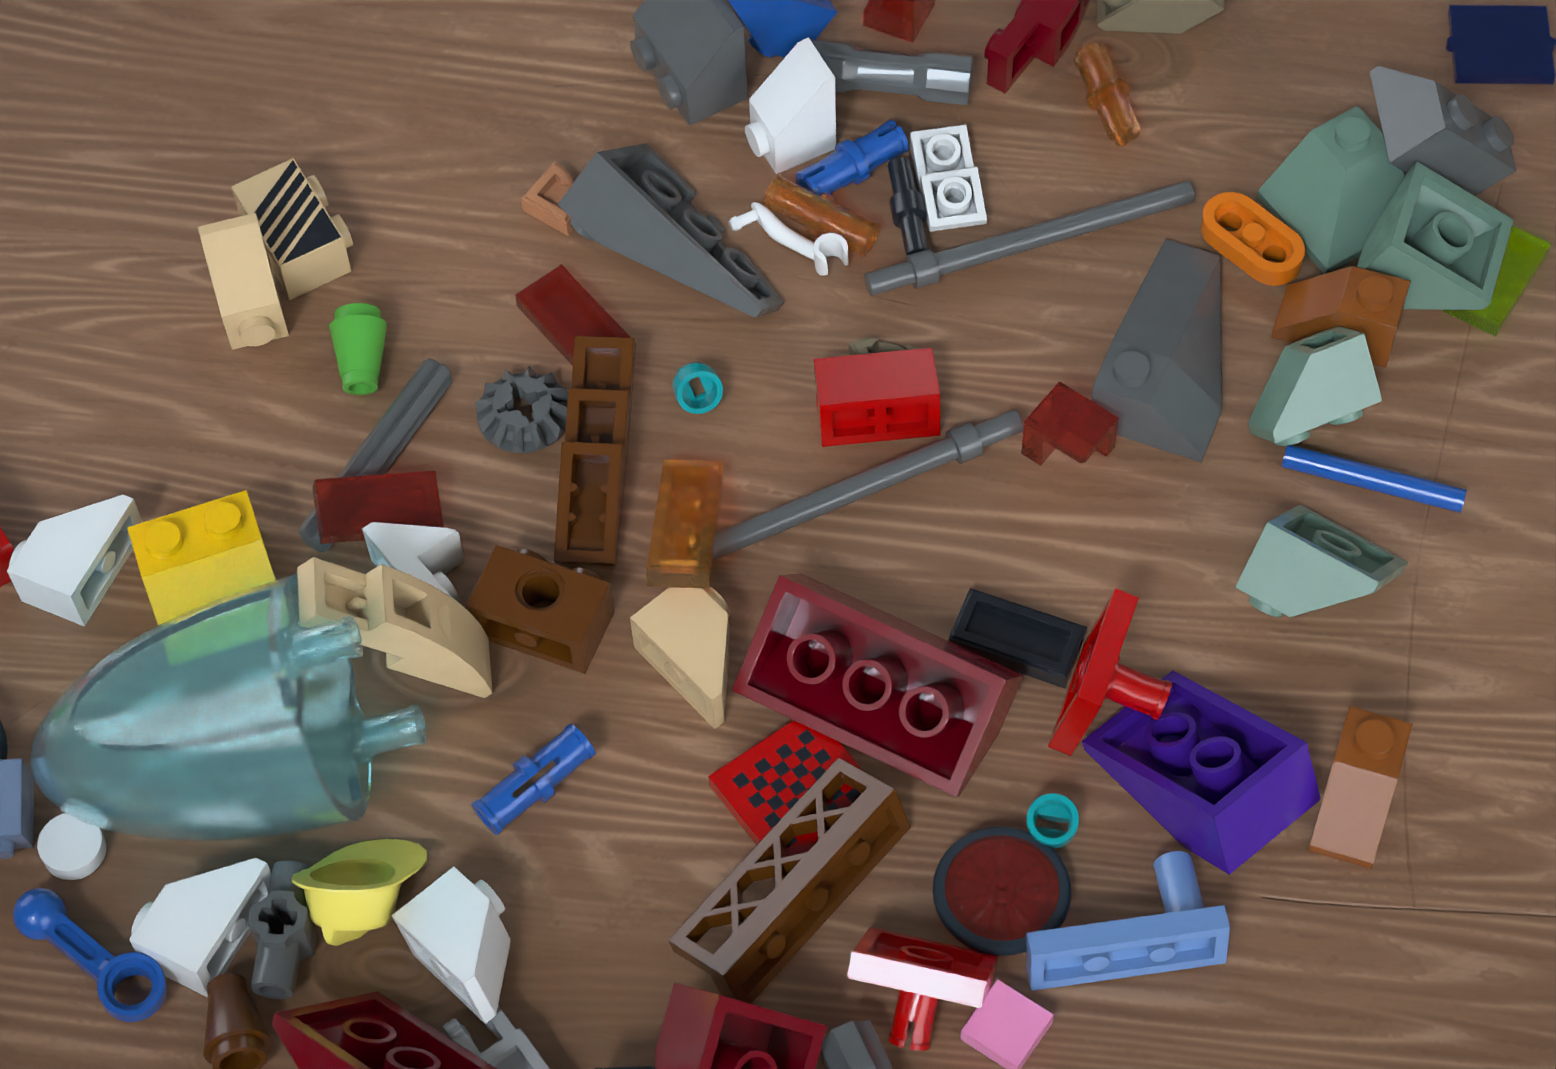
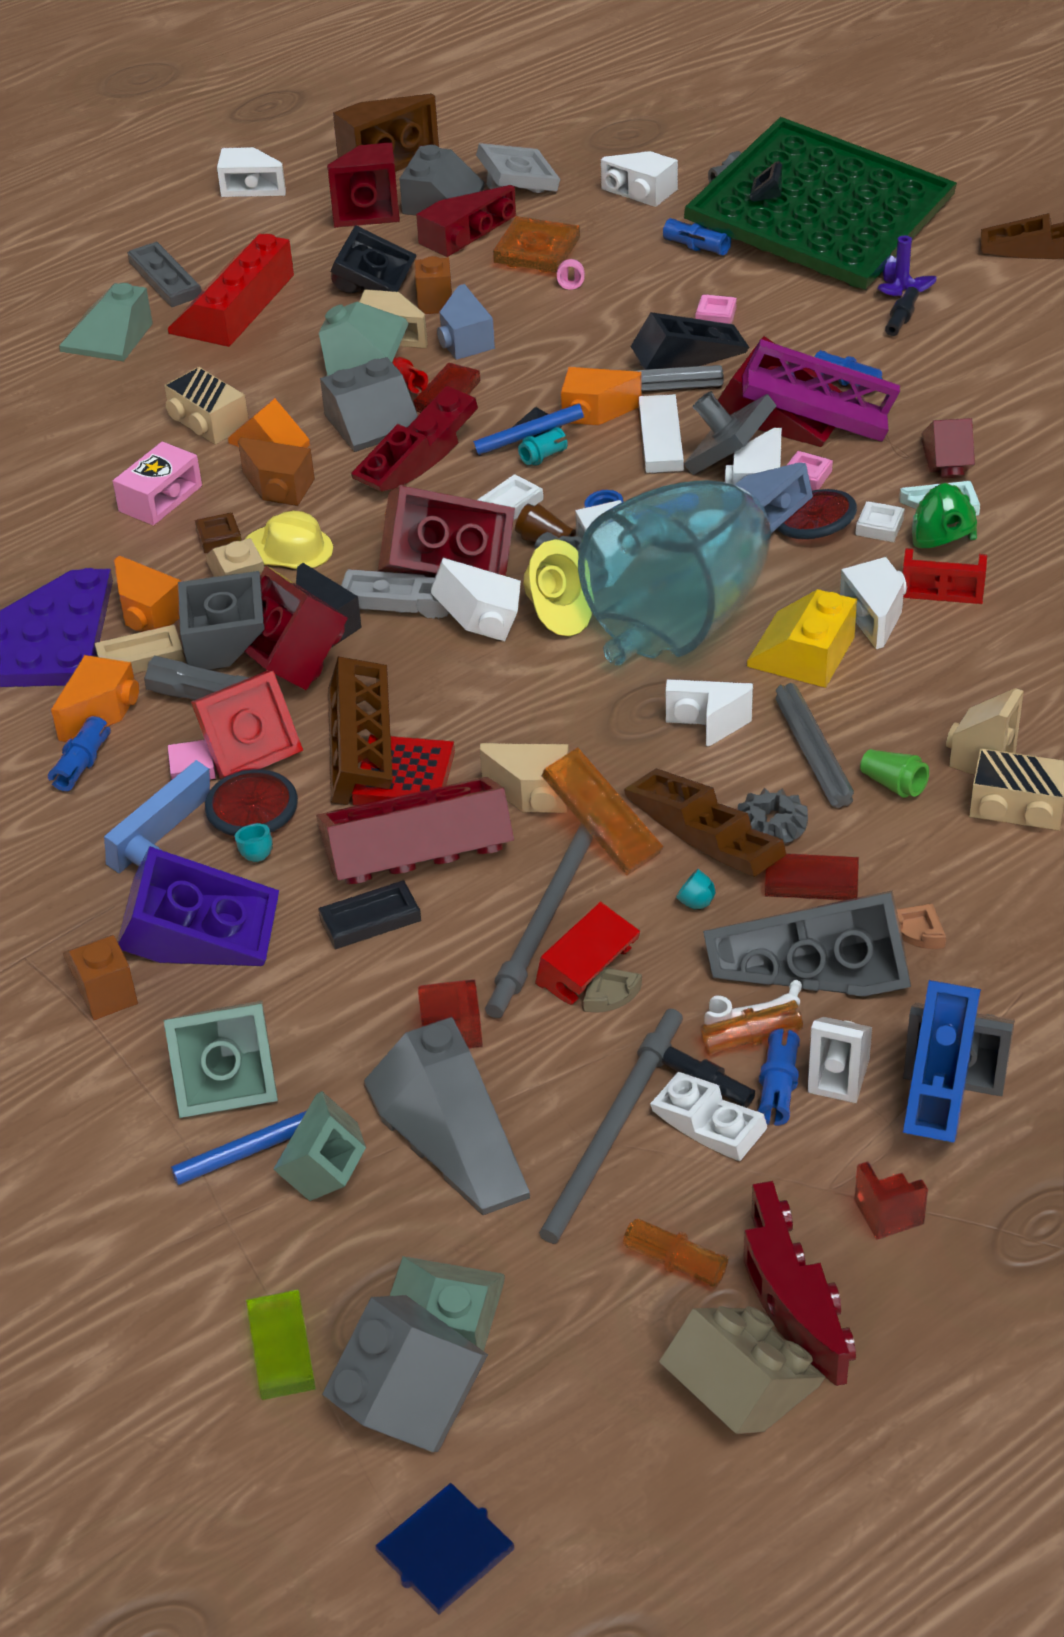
camera: 135 degrees right, 15 degrees down
(353, 502) = (769, 714): clear red tile -> none
(405, 618) = (648, 632): tan slope -> none
(560, 633) = (628, 736): reddish brown brick -> none
(566, 751) = (537, 684): blue pin -> none
(927, 75) = (860, 1125): dark grey axle -> none
(1103, 677) = (287, 893): red tile -> none
(1256, 238) = (469, 1226): orange plate -> none
(1347, 299) = (353, 1218): dark orange slope -> none
(1439, 242) = (323, 1292): sand green slope -> none

